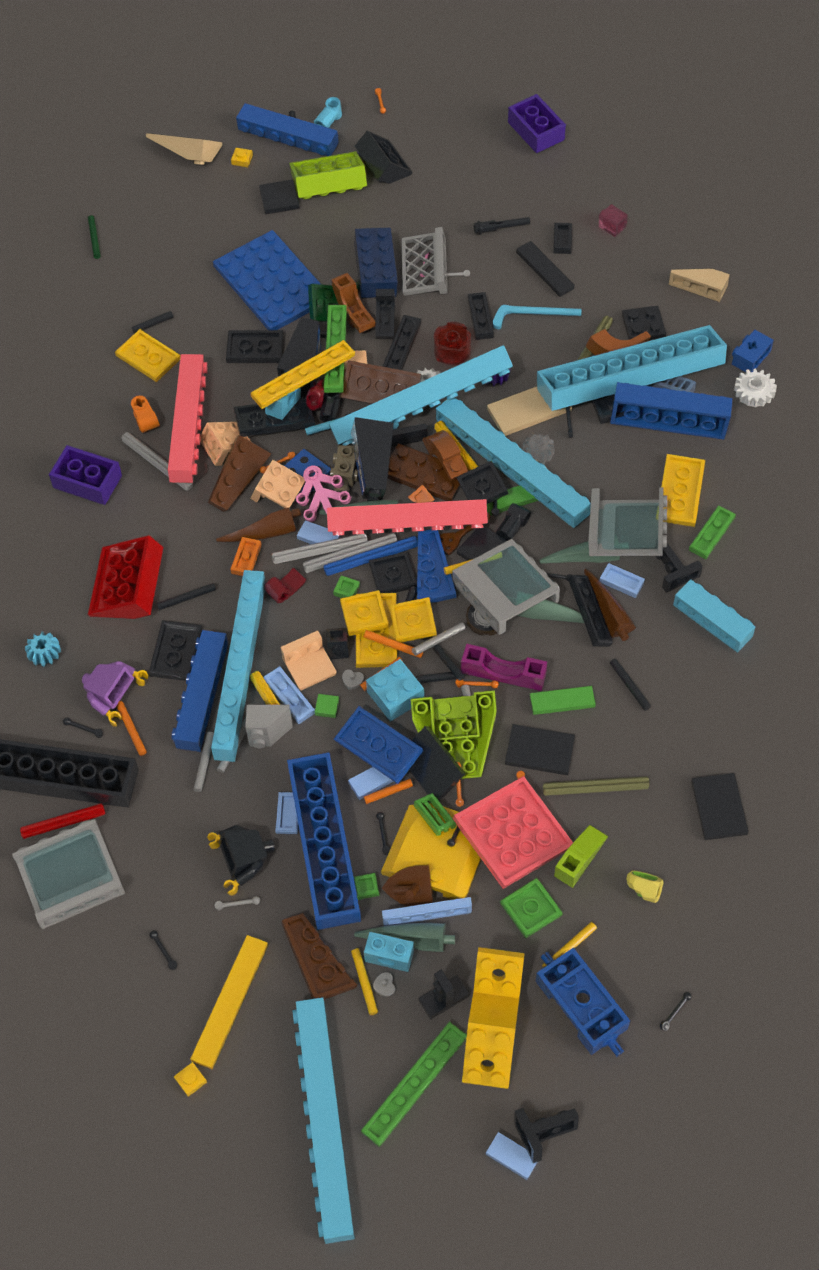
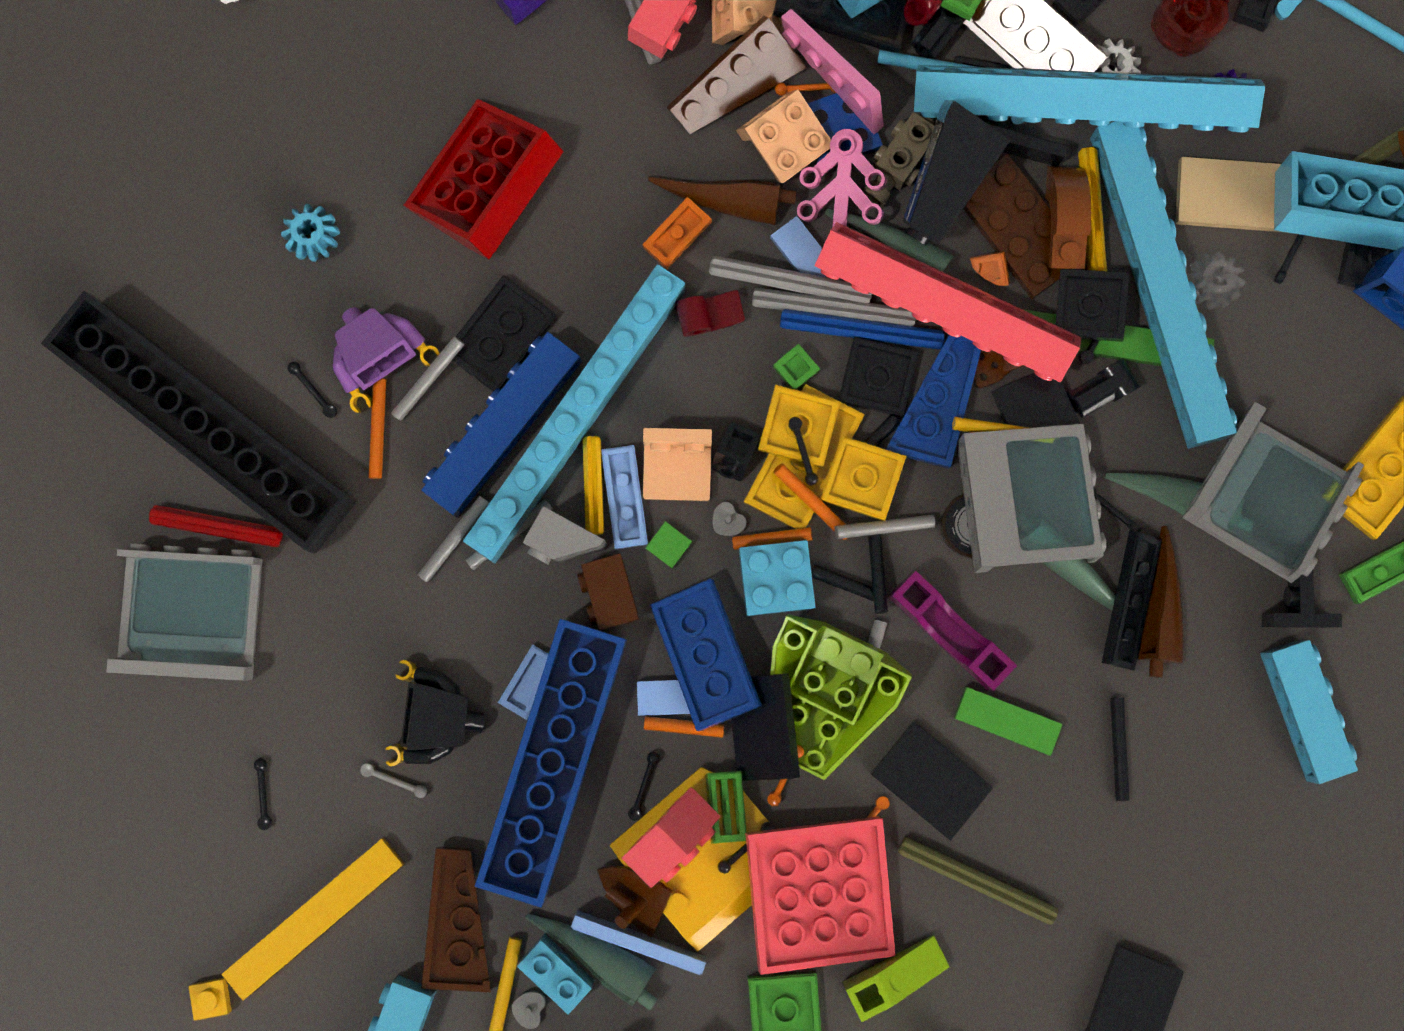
camera: 25 degrees right, 25 degrees up
(146, 688) = (427, 378): none -> light grey bar
(186, 596) = (558, 251): black bar -> none
(288, 443) = (835, 70): none -> bright pink wing
(306, 739) = (608, 592): none -> reddish brown brick
(361, 611) = (795, 425): none -> black hinge
(366, 886) = (579, 853): bright green tile -> none
(411, 832) = (672, 839): none -> coral brick
(494, 684) = (924, 640): orange hinge -> none
(622, 580) = (1208, 573): light blue tile -> none

